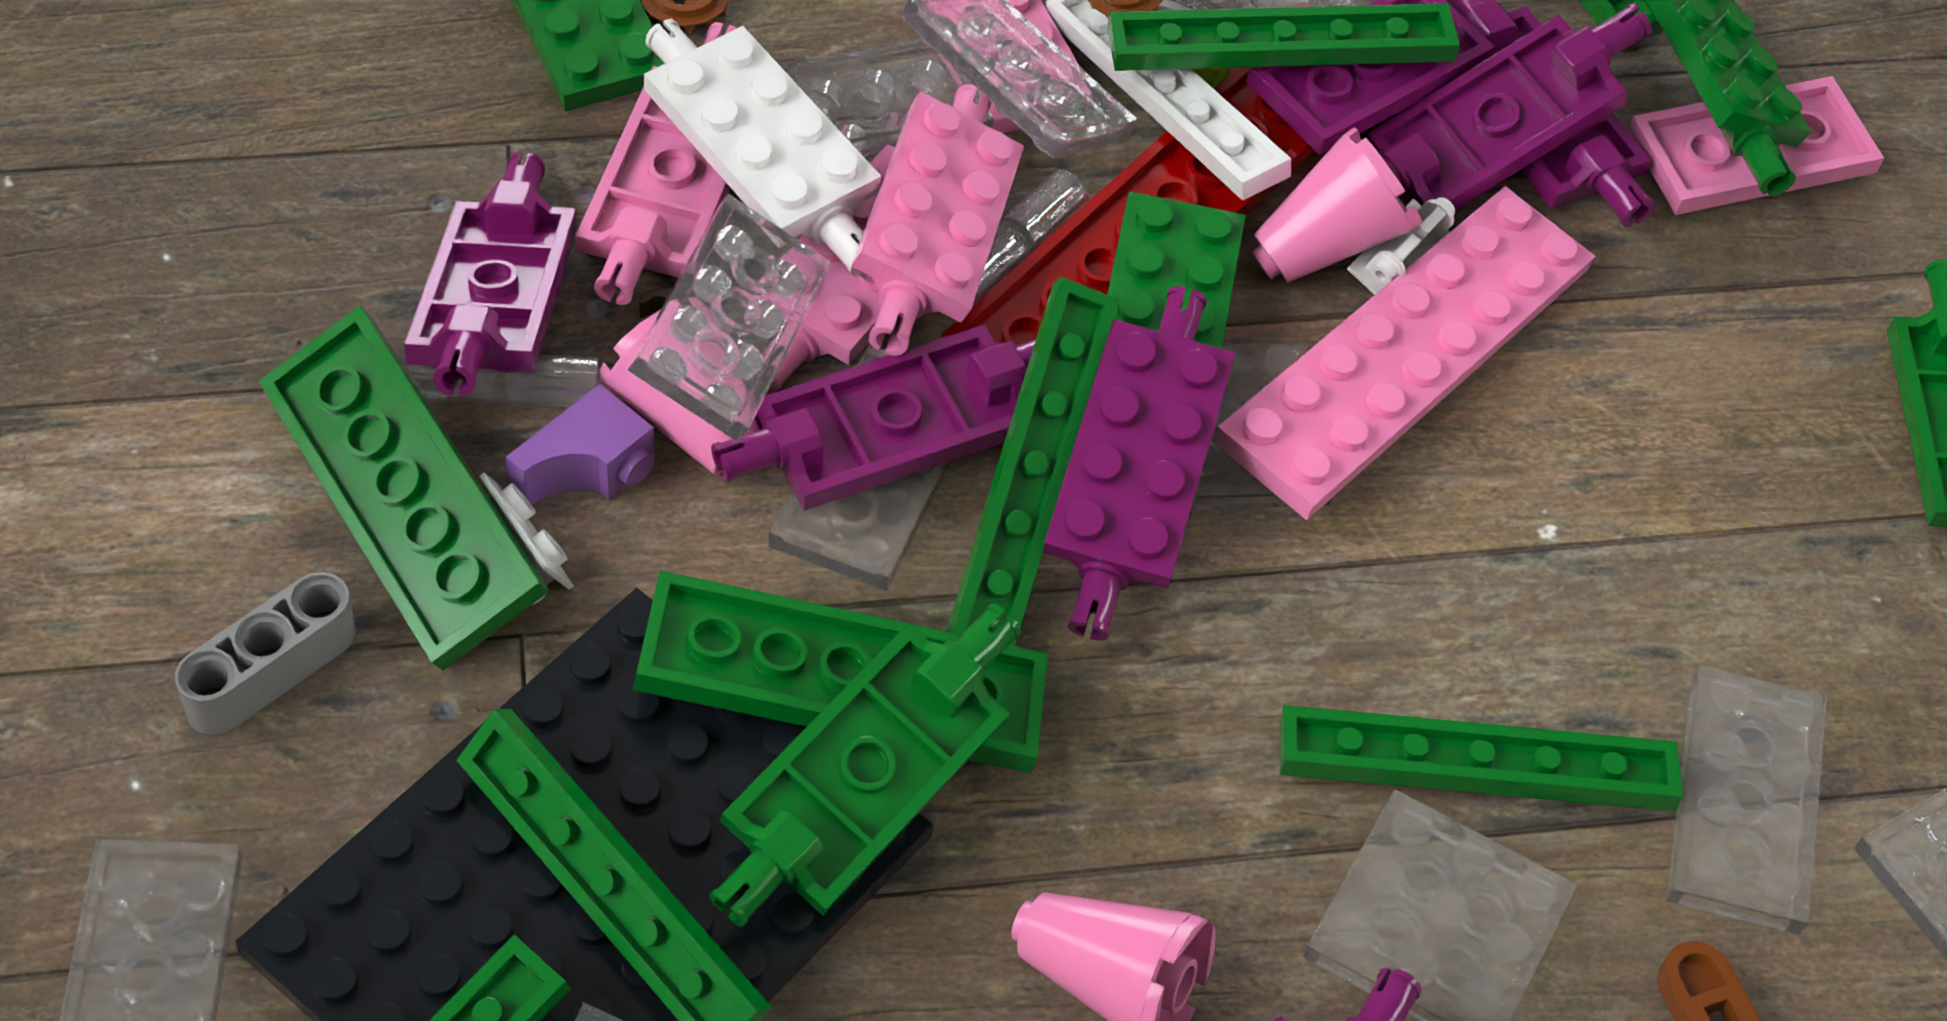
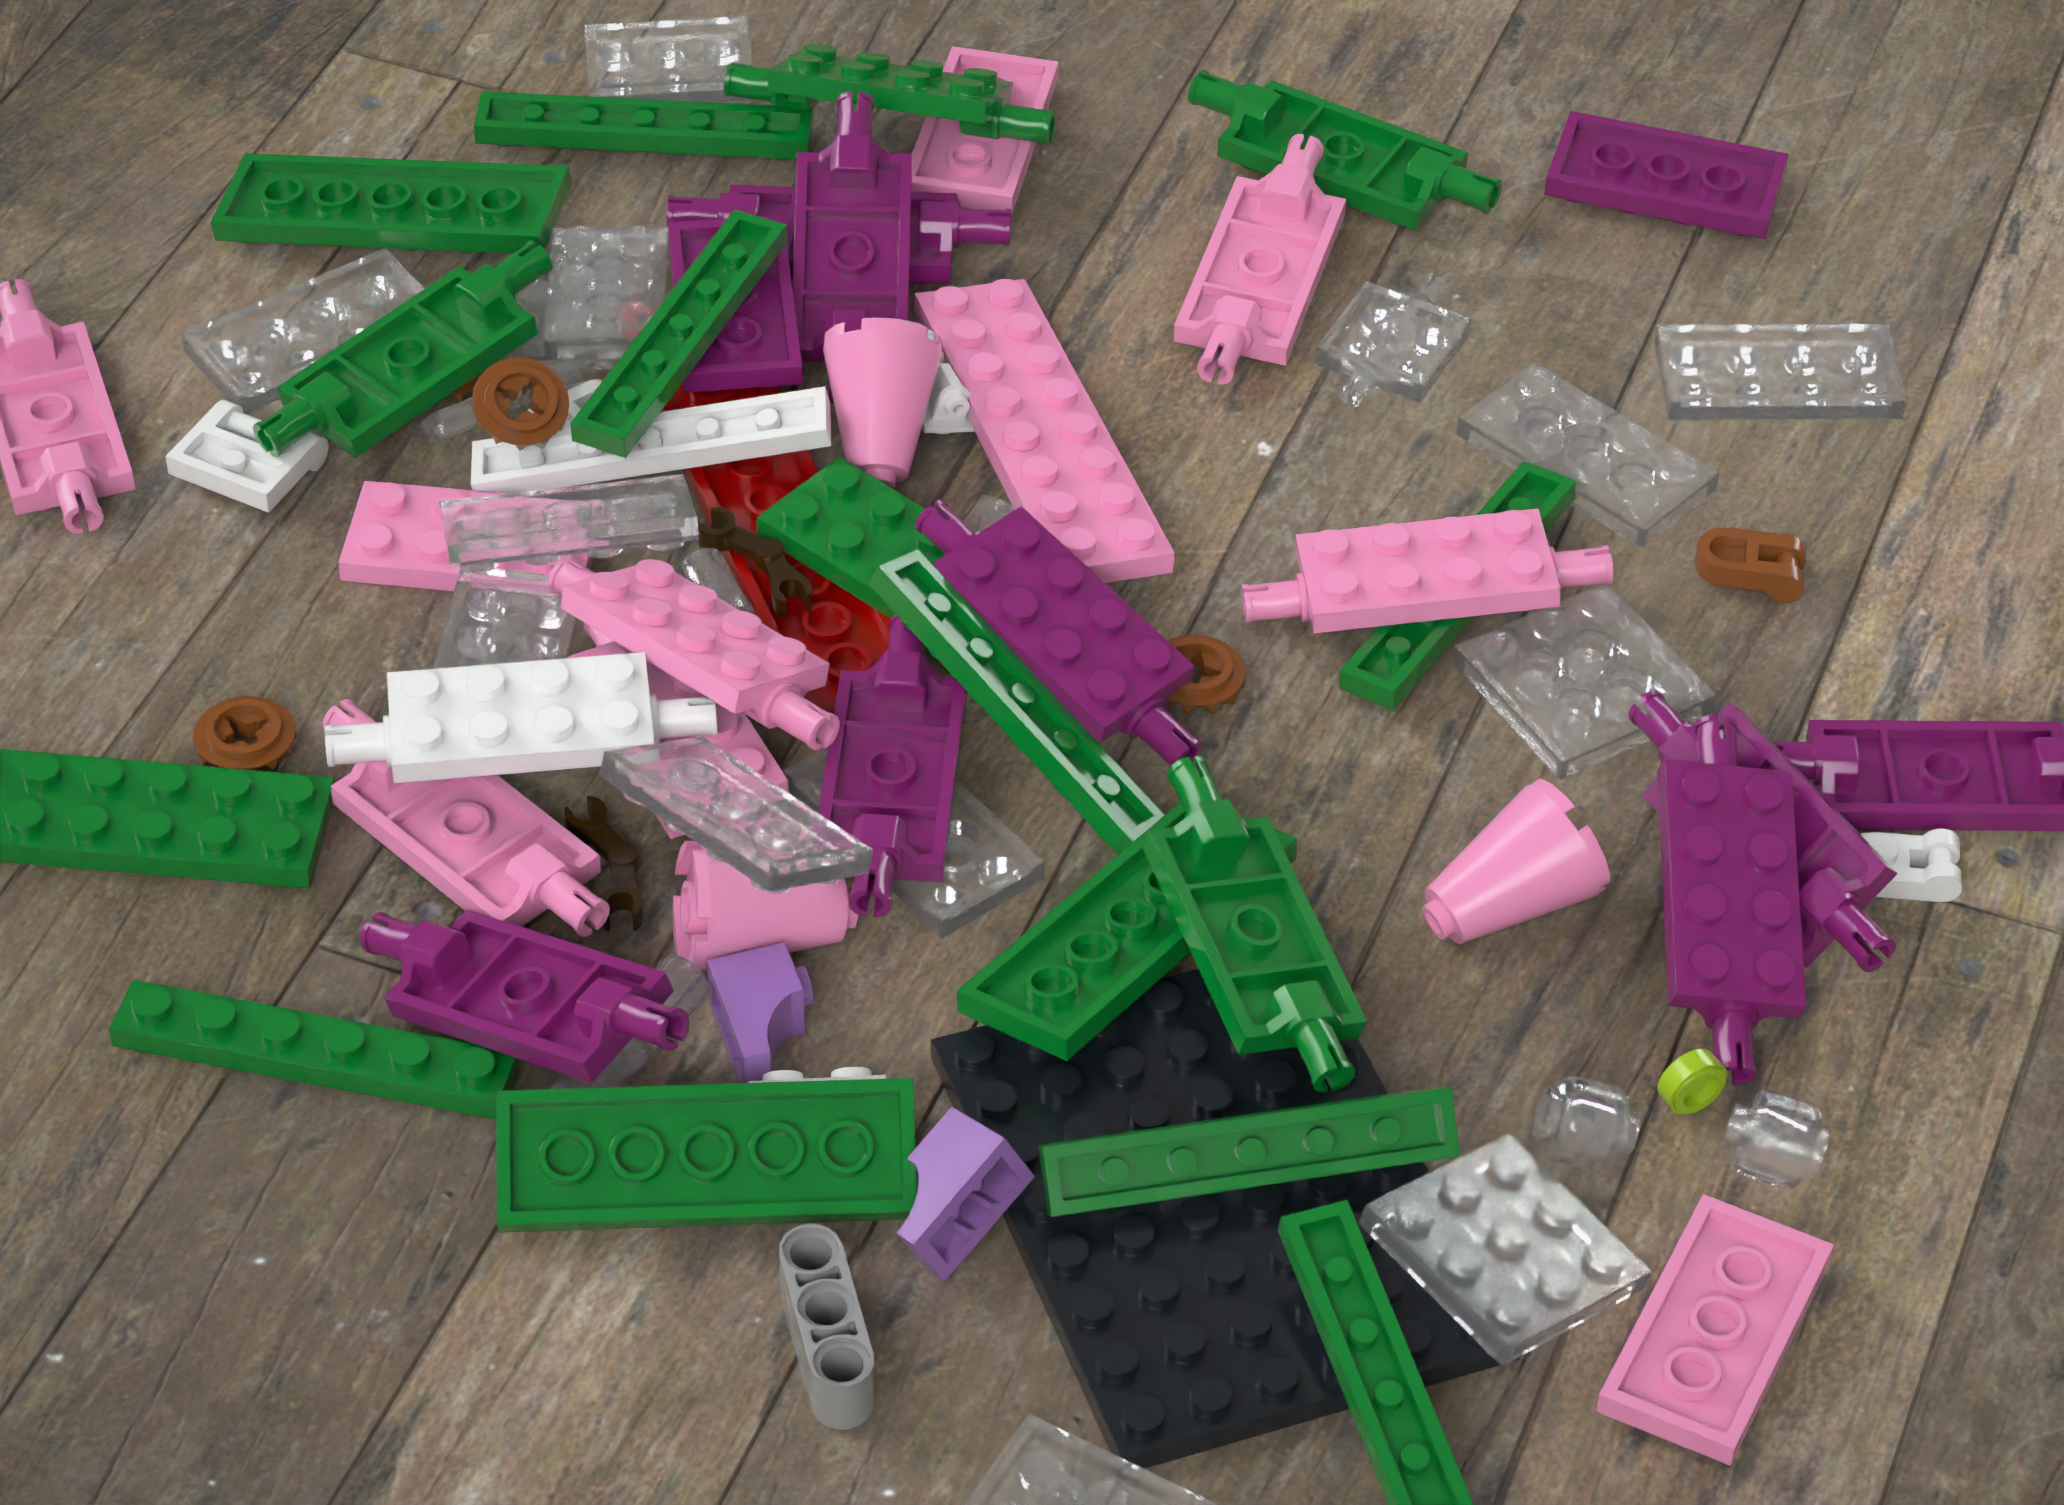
camera: 55 degrees left, 10 degrees down
(386, 179) = (312, 1048): none -> green plate
(452, 677) = (963, 1189): none -> medium lavender arch
(1079, 241) = (767, 553): none -> dark brown piece
(1220, 576) = (1221, 670): none -> dark orange gear
(1457, 725) = (1425, 573): none -> bright pink plate
(1756, 568) = (1393, 341): none -> clear plate
(1760, 422) = (1261, 266): none -> bright pink plate

